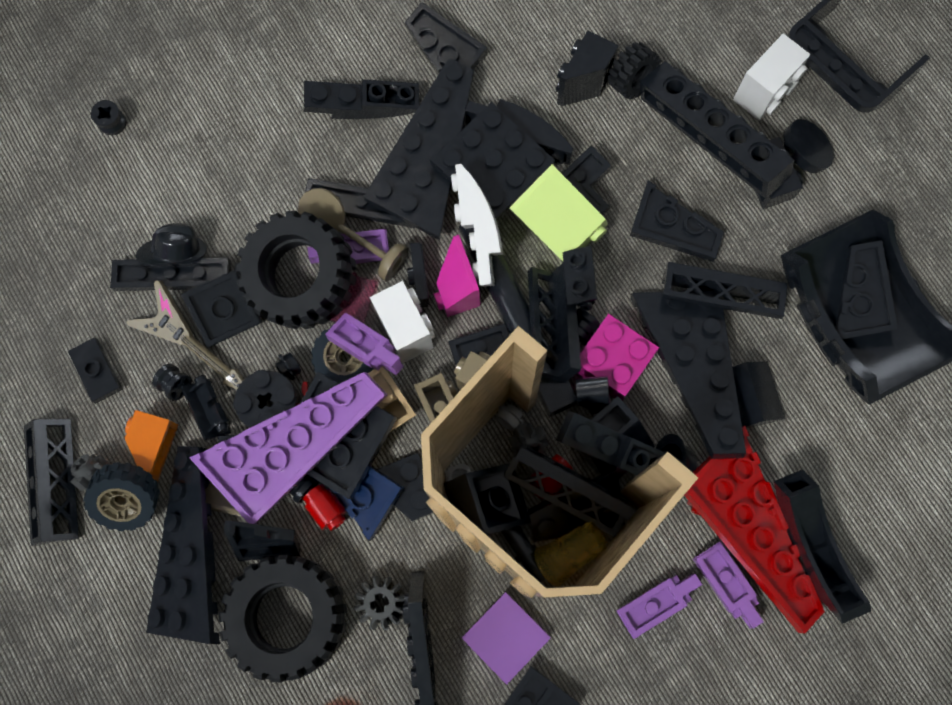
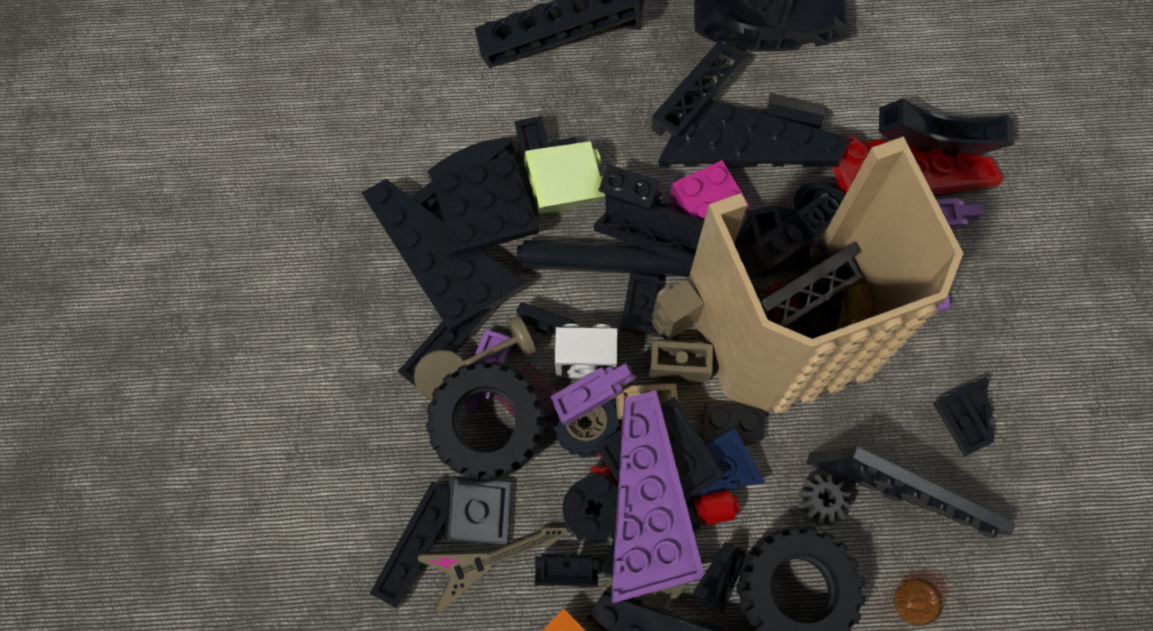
camera: 65 degrees left, 5 degrees down
(108, 124) = (225, 531): black wheel -> none
(170, 381) = (523, 592): black wheel -> none
(172, 245) = (389, 530): black piece -> none
(288, 366) = (565, 476): black plate -> none
(365, 101) = (351, 289): black slope -> none
(443, 39) = (336, 193): black wing -> none
(456, 282) = (571, 288): dark pink slope -> none
(476, 213) = (527, 235): white slope -> none
(506, 638) = (900, 411): medium lavender tile -> none
(587, 70) = (443, 88): black slope -> none
(632, 68) = (467, 55): black tyre -> none
(673, 226) = (617, 101): black wing -> none

